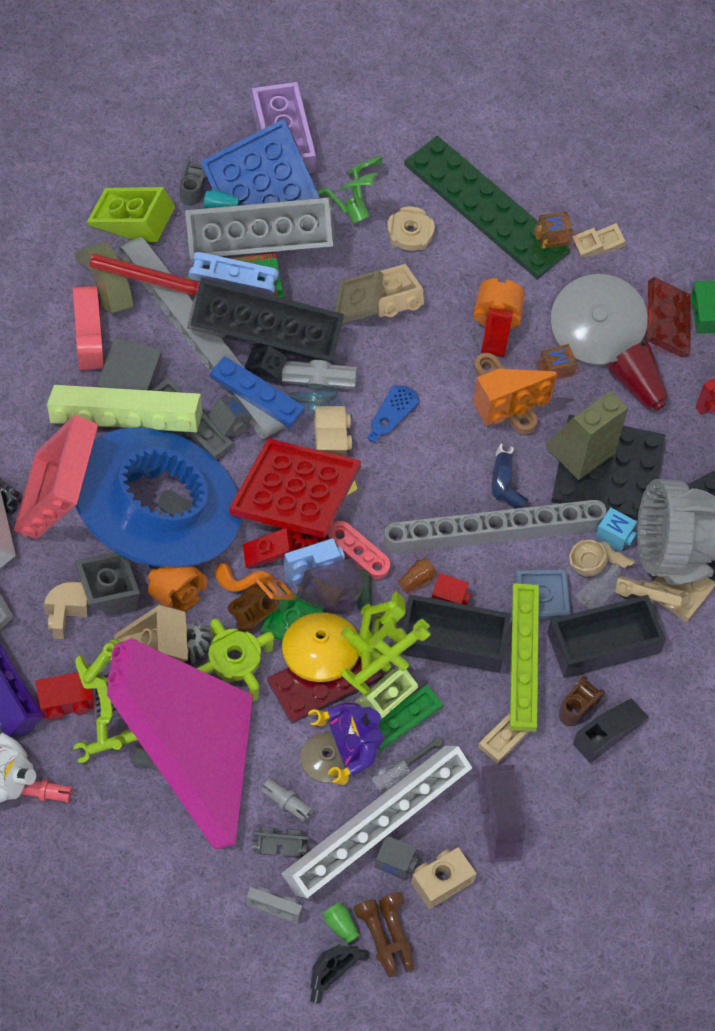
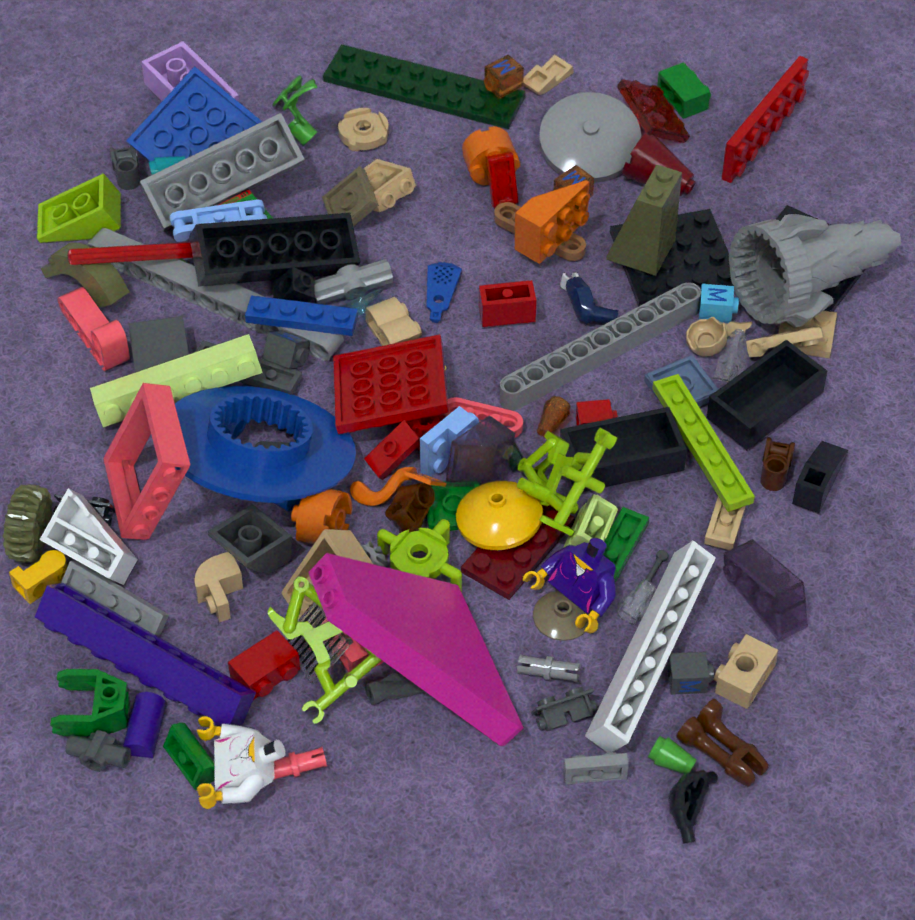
camera: 20 degrees left, 10 degrees down
(435, 453) = (507, 303): none -> red brick

